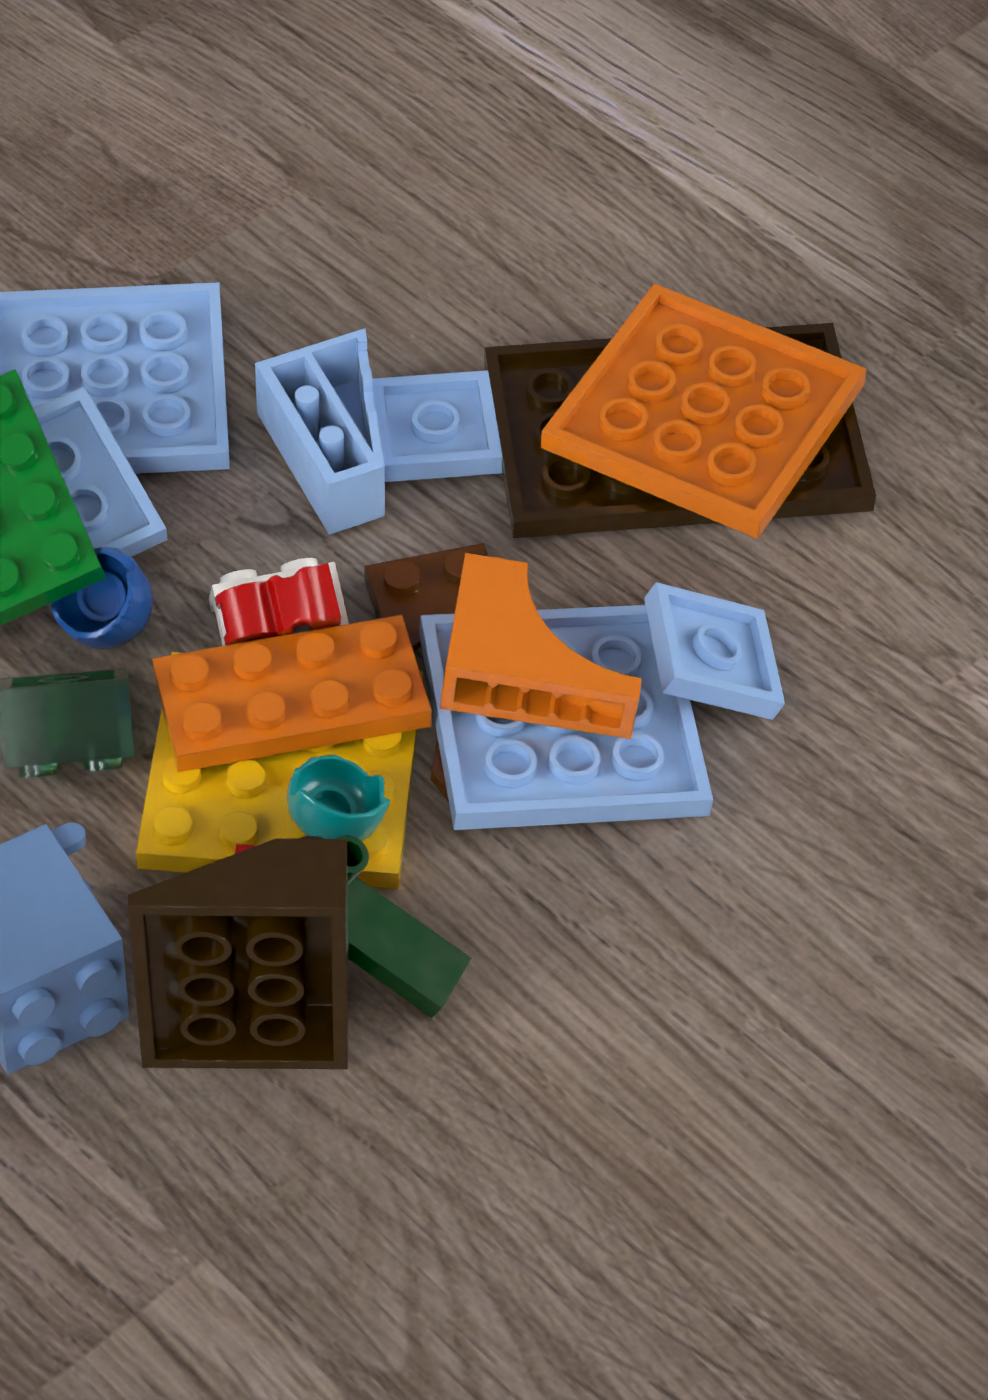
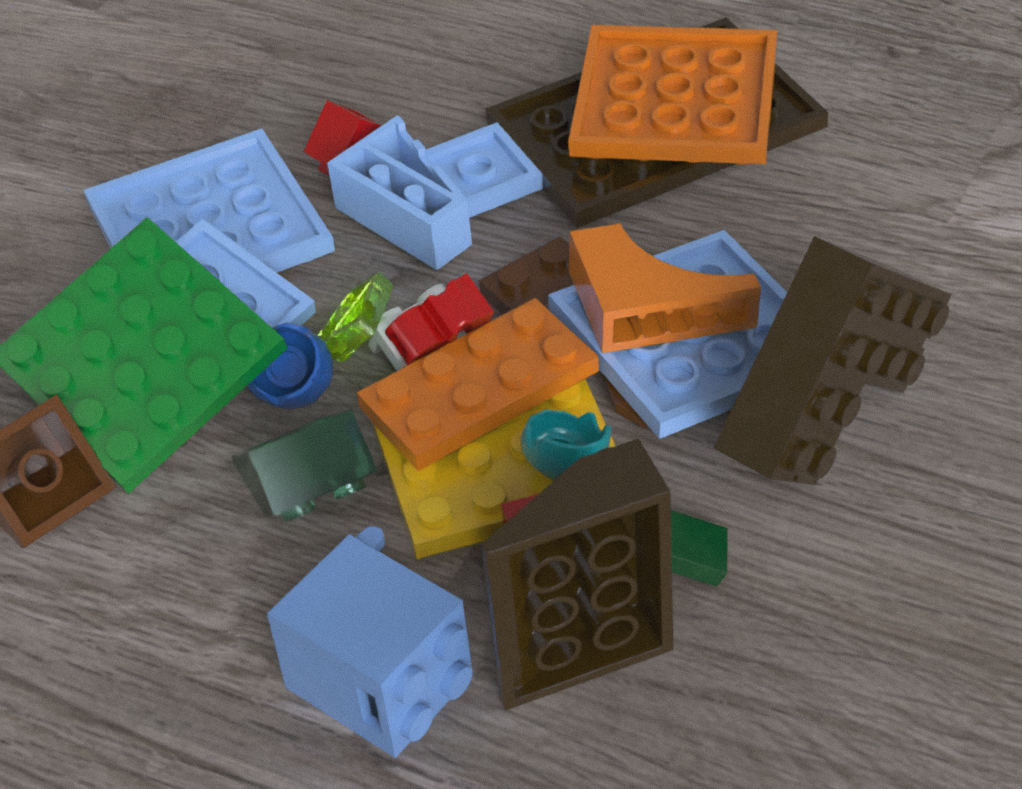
camera: 15 degrees left, 5 degrees down
(203, 564) = (357, 317): none -> clear neon green wing
(297, 321) = (336, 132): none -> red brick
(663, 784) = (835, 331): none -> dark brown piece
(713, 651) = (765, 242): light blue plate -> none

